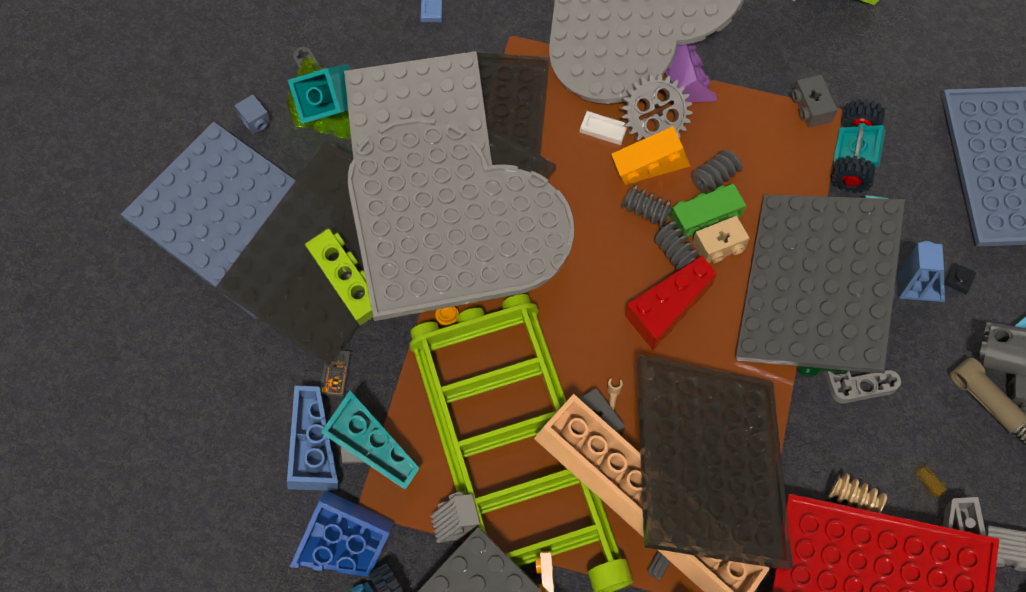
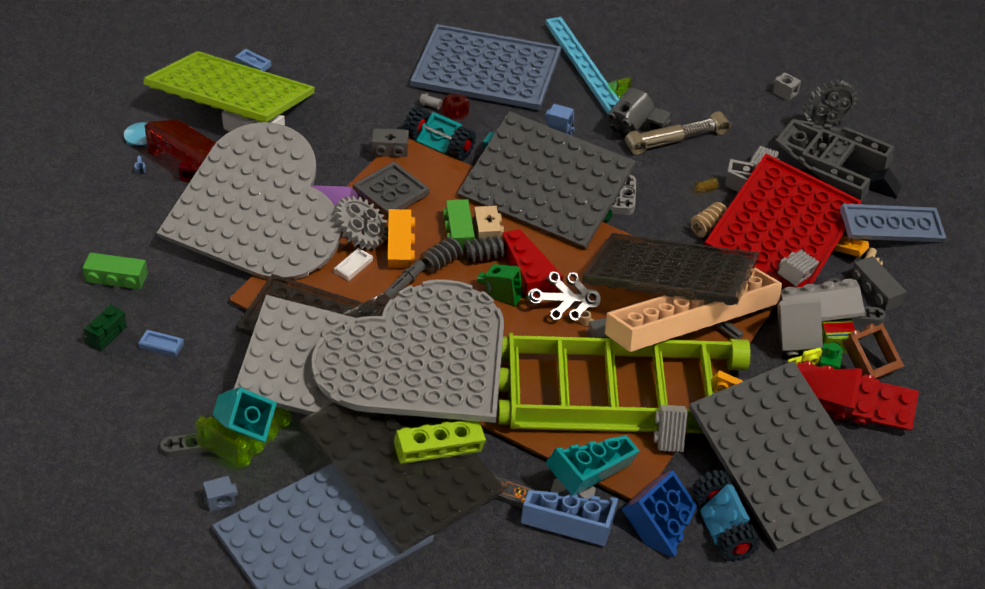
camera: 75 degrees left, 20 degrees down
(600, 183) = (408, 276): none -> dark grey pin
(625, 274) = (503, 283): none -> green torso
(631, 353) = (566, 296): none -> plant
(716, 171) = (428, 209): dark grey piece -> none
(737, 125) = (391, 188): none -> dark grey plate
(921, 119) = (430, 101): none -> light grey pin
(925, 151) = (455, 106): none -> clear red gear

